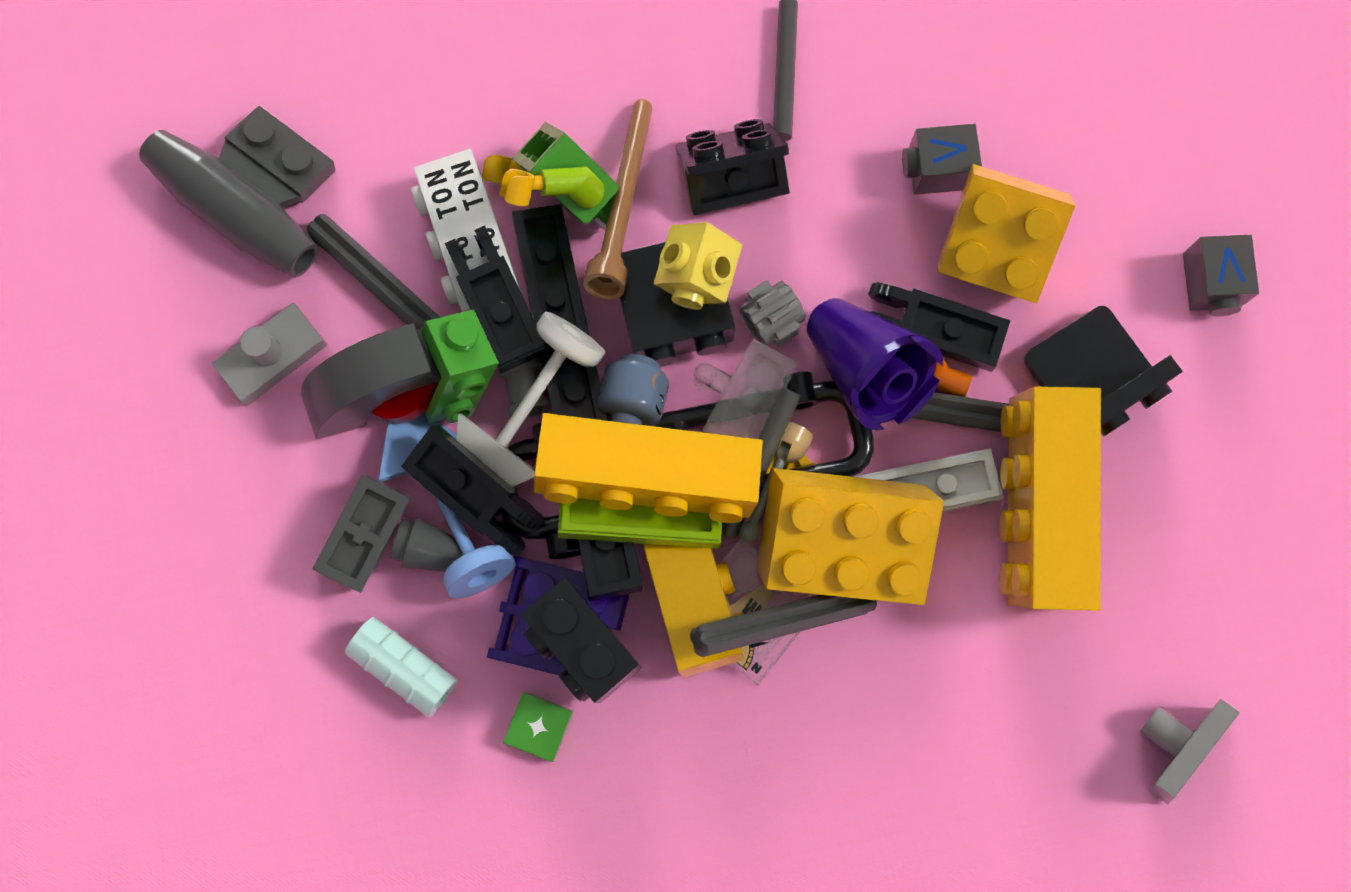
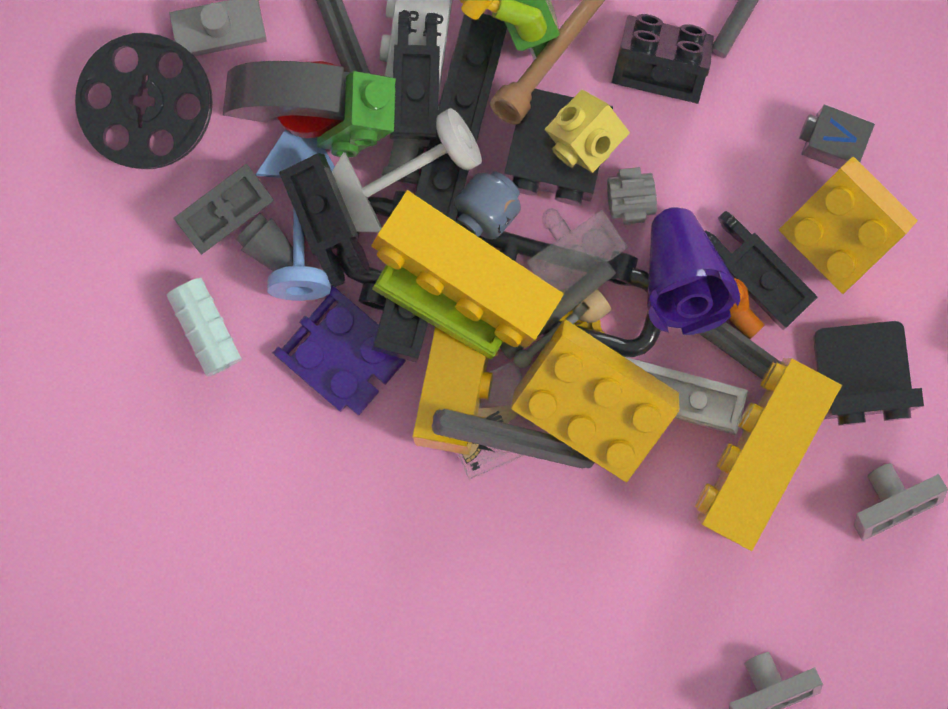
camera: 20 degrees right, 5 degrees up
(201, 459) = (123, 112): none -> black wedge
(538, 727) = (286, 425): bright green tile -> none
(573, 632) = (353, 386): black brick -> none
(1199, 483) = (897, 502): none -> light grey tile

